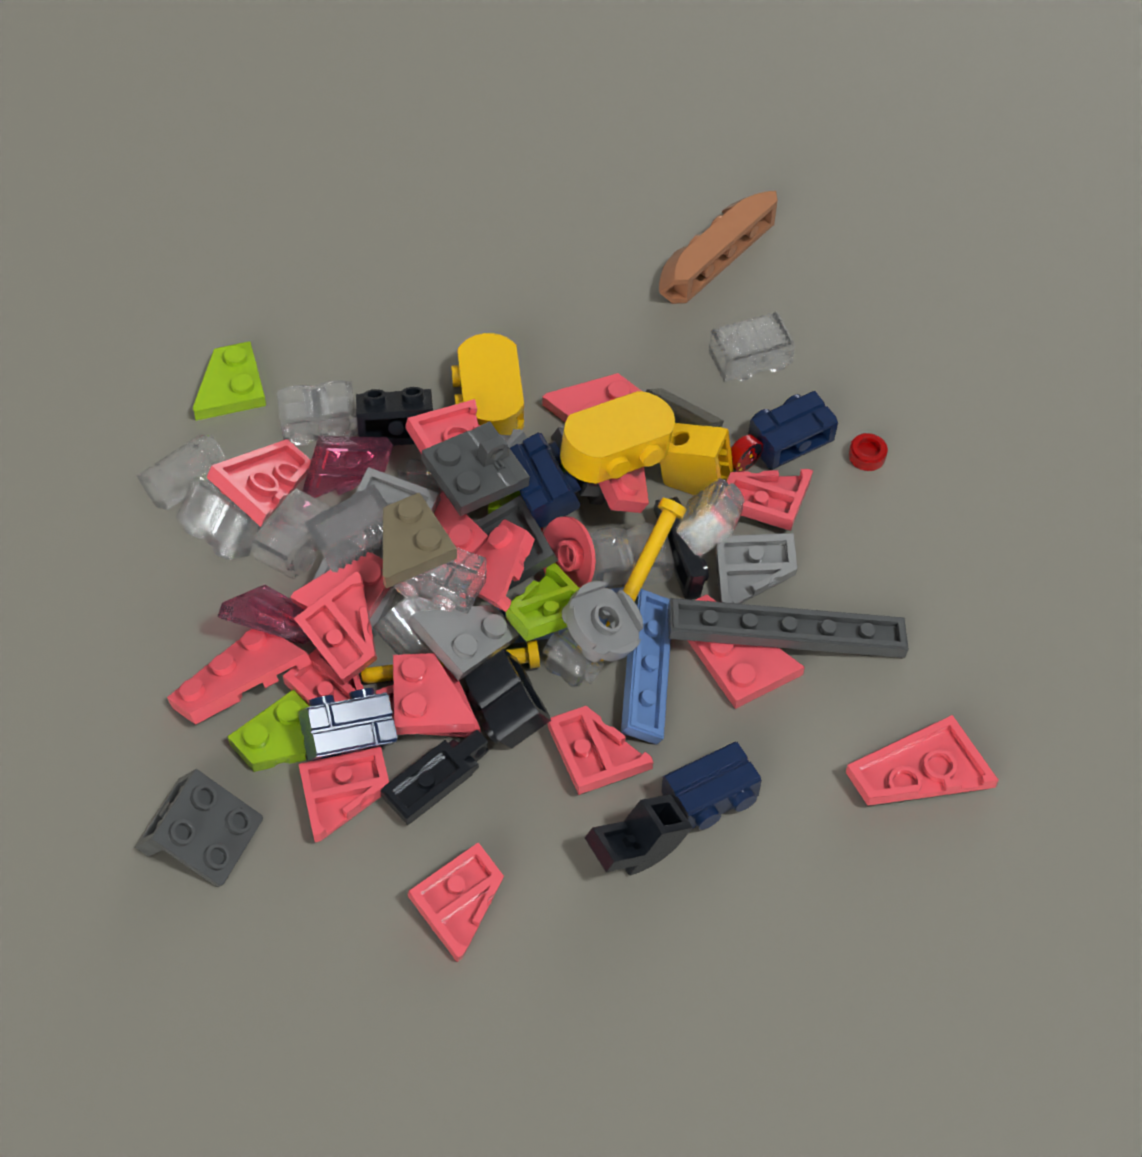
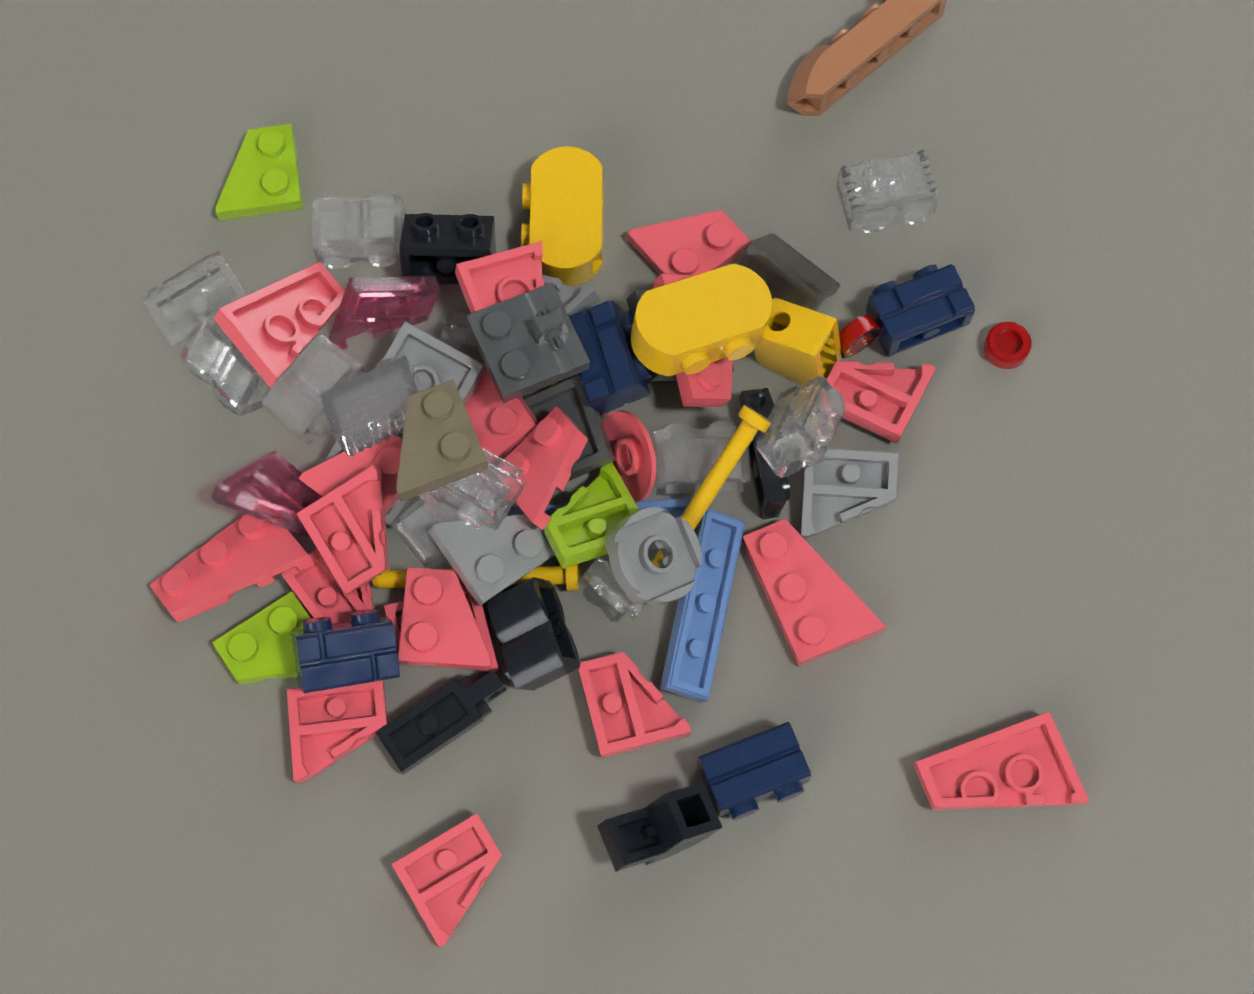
camera: 10 degrees right, 15 degrees up
(201, 827) = (171, 755): dark grey bracket -> none
(787, 628) = (873, 576): dark grey tile -> none

